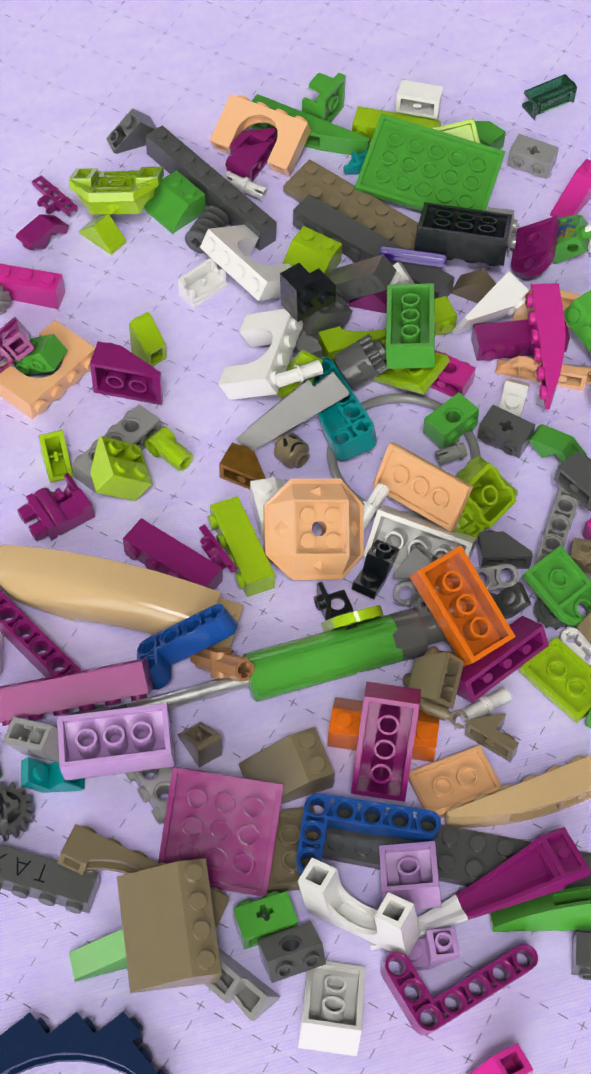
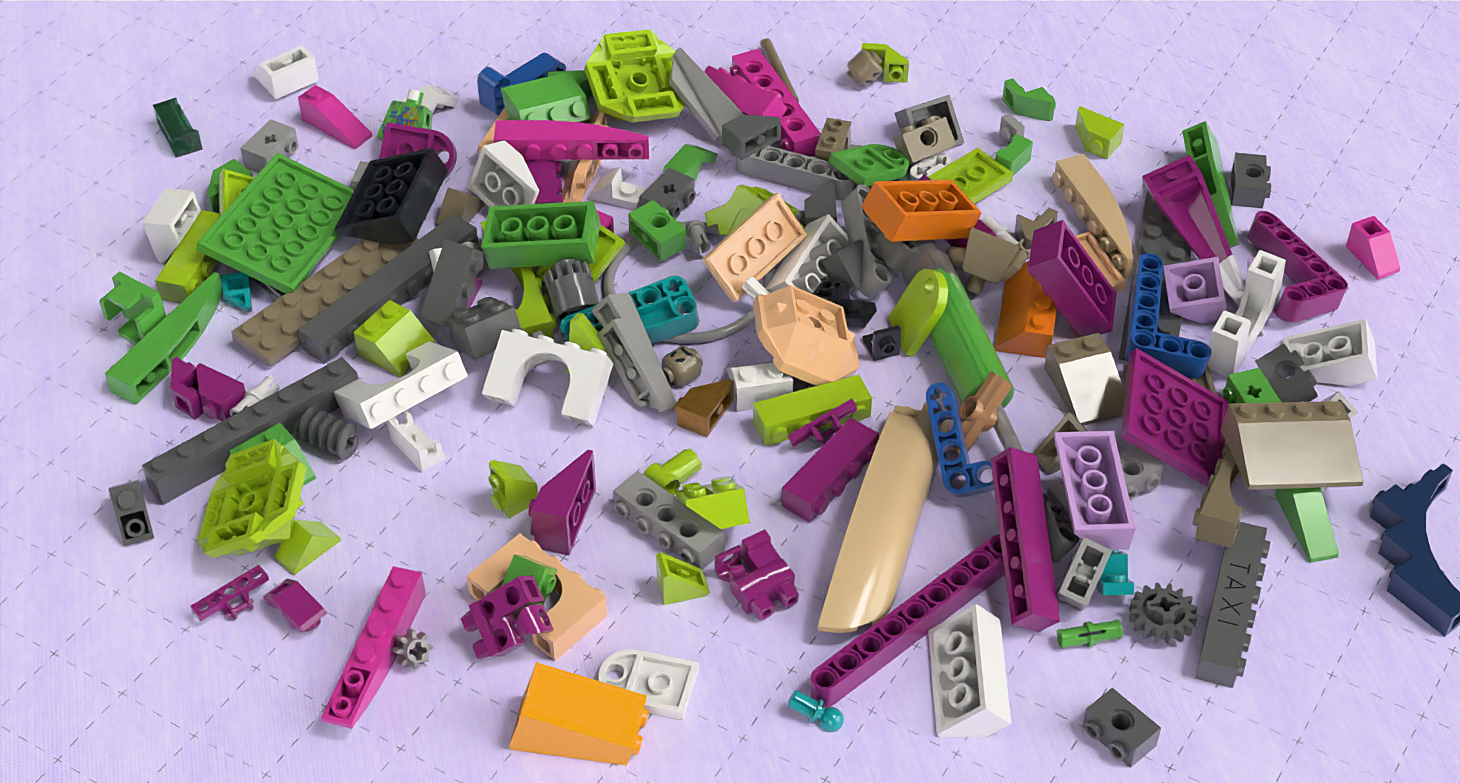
camera: 85 degrees left, 10 degrees down
(242, 113) = (190, 338): light nougat arch -> none
(299, 373) = (599, 329): white axle -> none
(305, 292) = (498, 303): black brick -> none
(413, 256) = (422, 241): axle -> none

